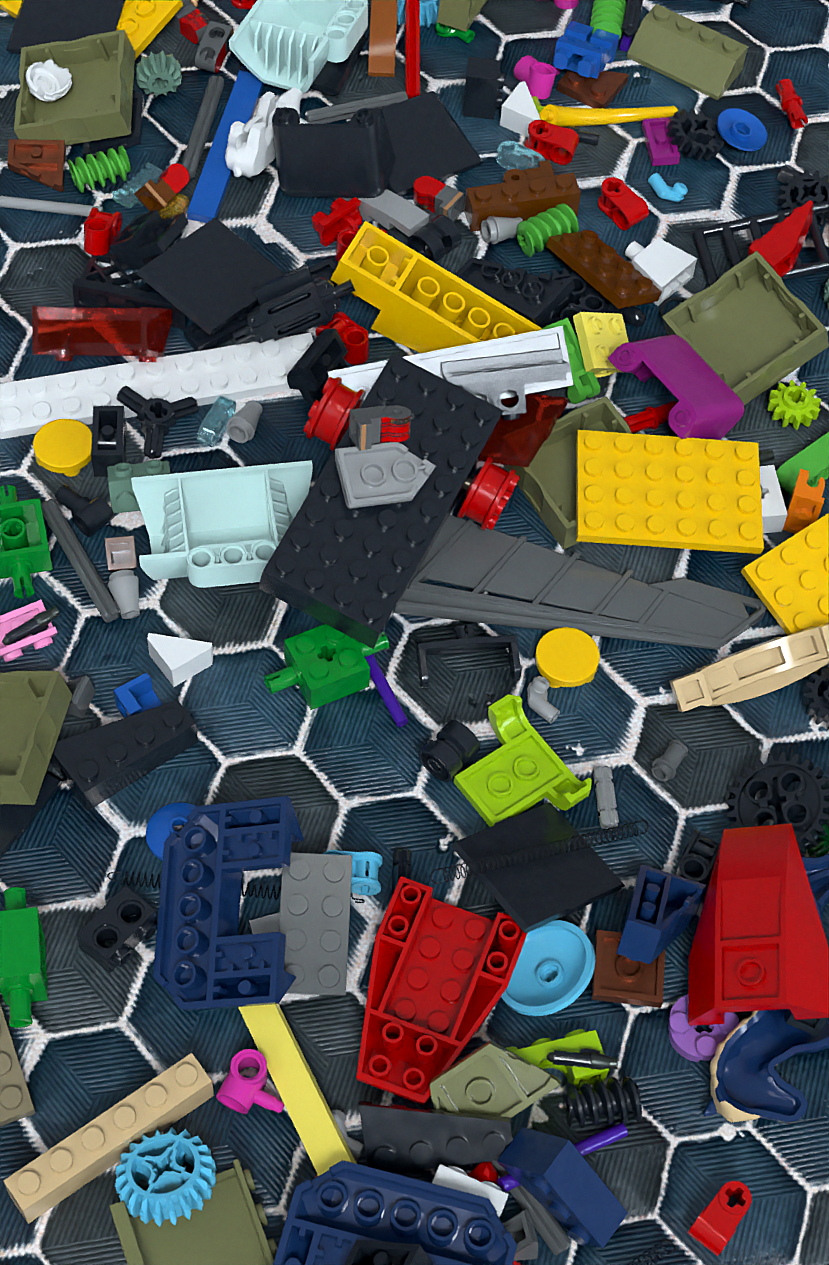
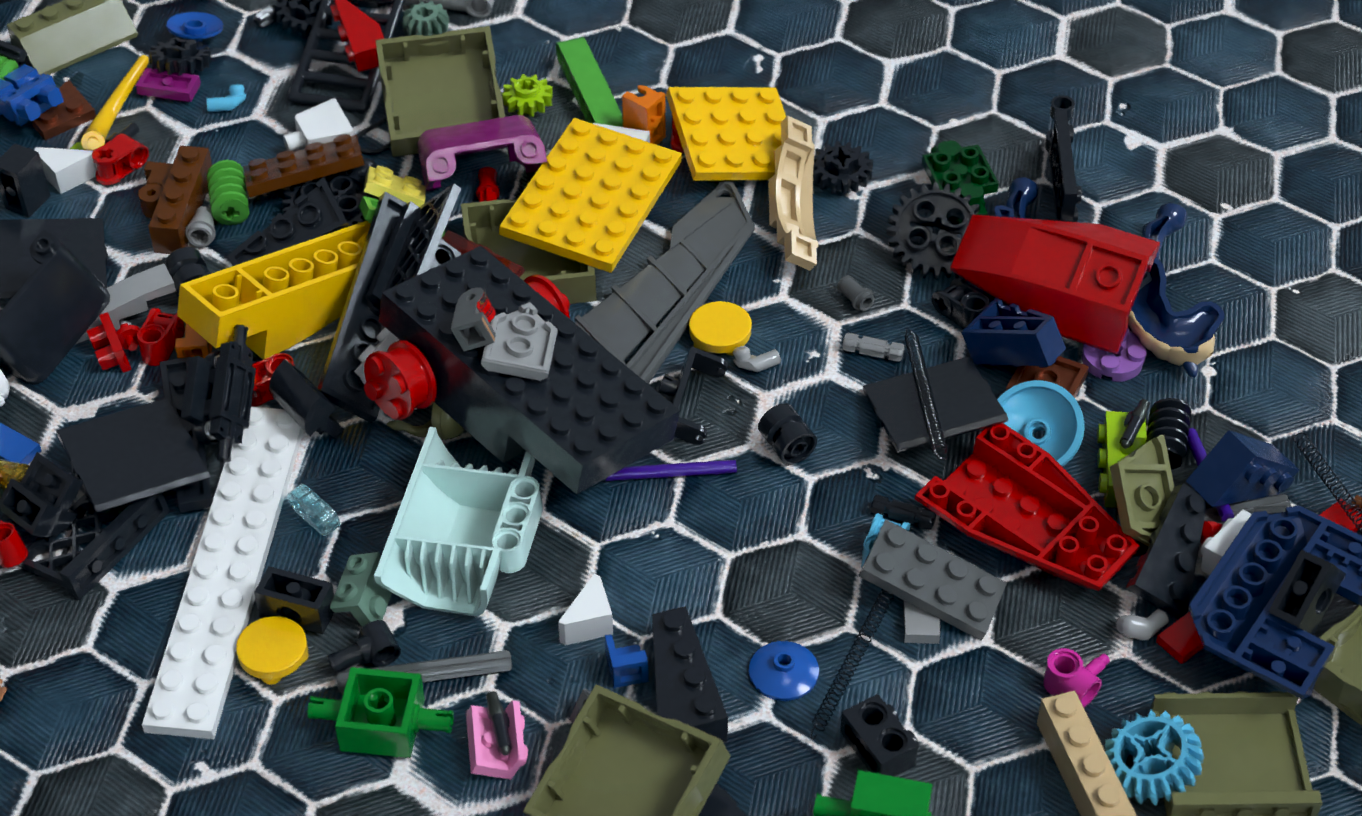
camera: 65 degrees left, 10 degrees down
(100, 332) = (153, 557): clear red windscreen -> none
(120, 553) = (452, 622): leg -> none
(125, 591) = (489, 638): light grey cone -> none
(154, 427) = (284, 553): black bush -> none
(199, 906) = (846, 653): dark blue slope -> none
(243, 424) = (328, 487): light grey cone -> none
(297, 1086) = (1092, 637): light yellow tile -> none
(324, 665) = (652, 500): green brick -> none
(438, 197) = (132, 259): leg -> none
(516, 156) = (119, 189): clear light blue beam -> none
(519, 770) = (830, 392): lime piece -> none
(537, 76) = (29, 135): dark pink piece -> none
(621, 207) = (230, 132): red piece -> none
(719, 1220) = (1288, 393): red piece -> none

